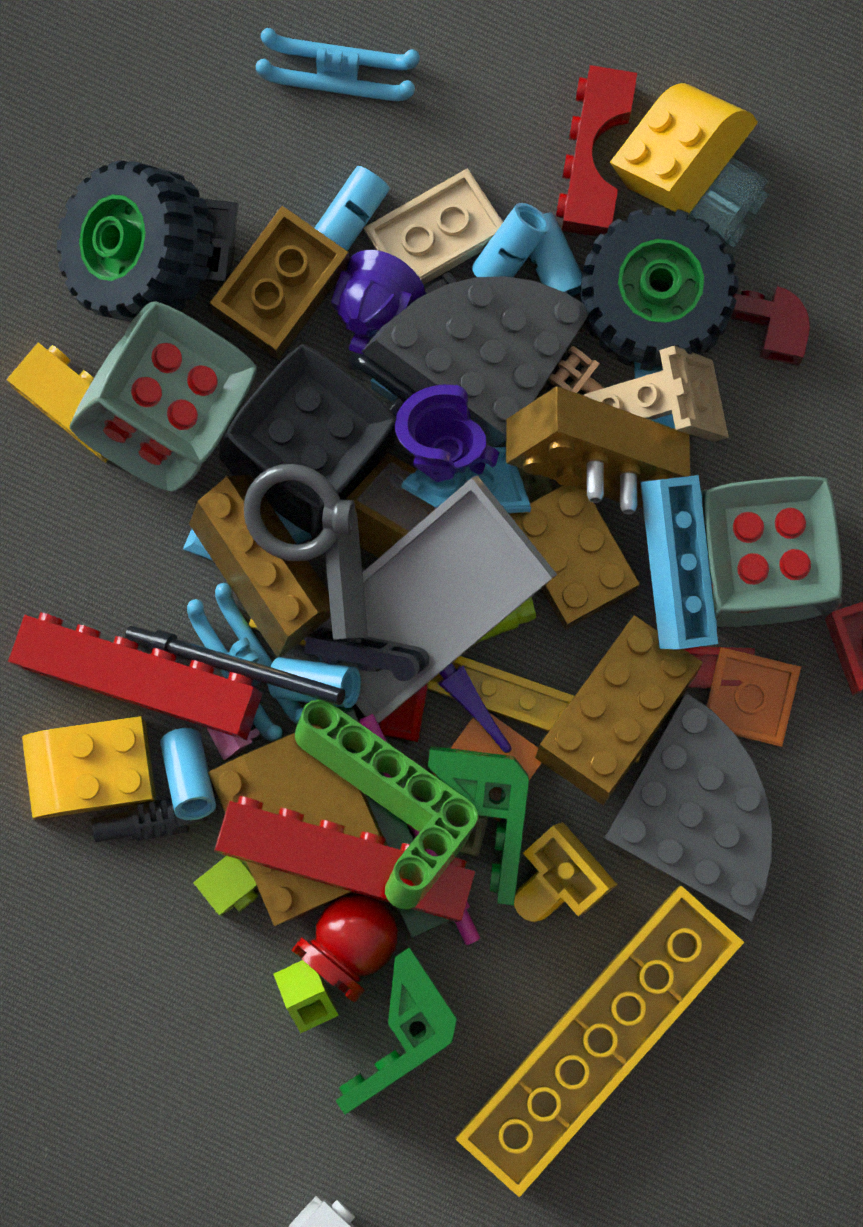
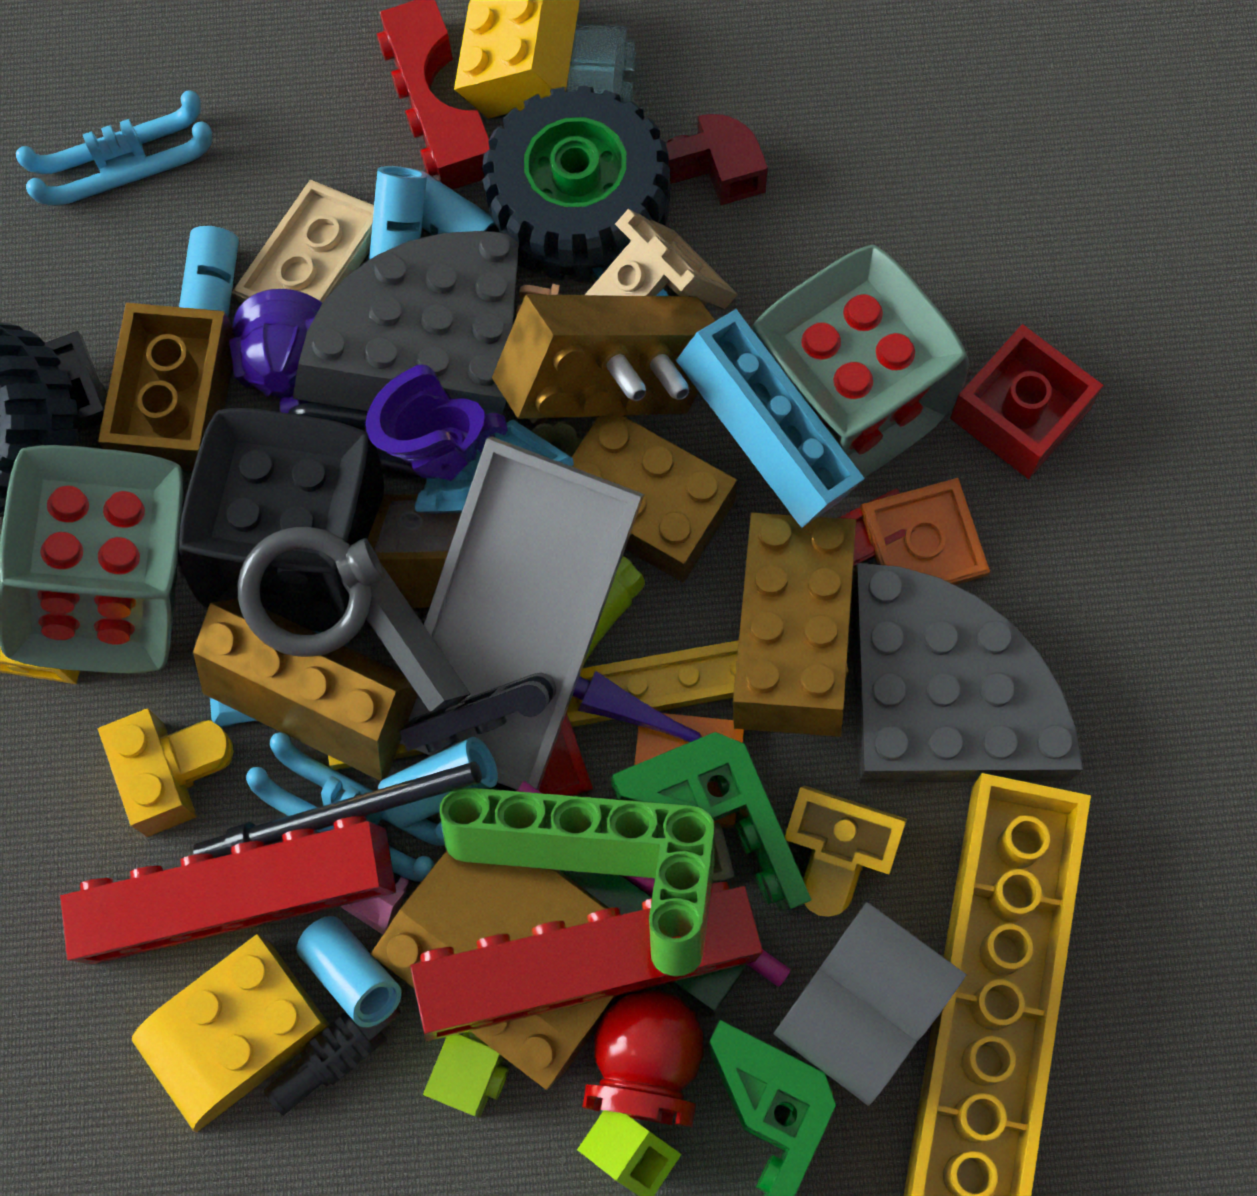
camera: 25 degrees left, 10 degrees down
(131, 560) = (159, 767): none -> yellow brick
(505, 993) = (869, 1004): none -> dark grey brick

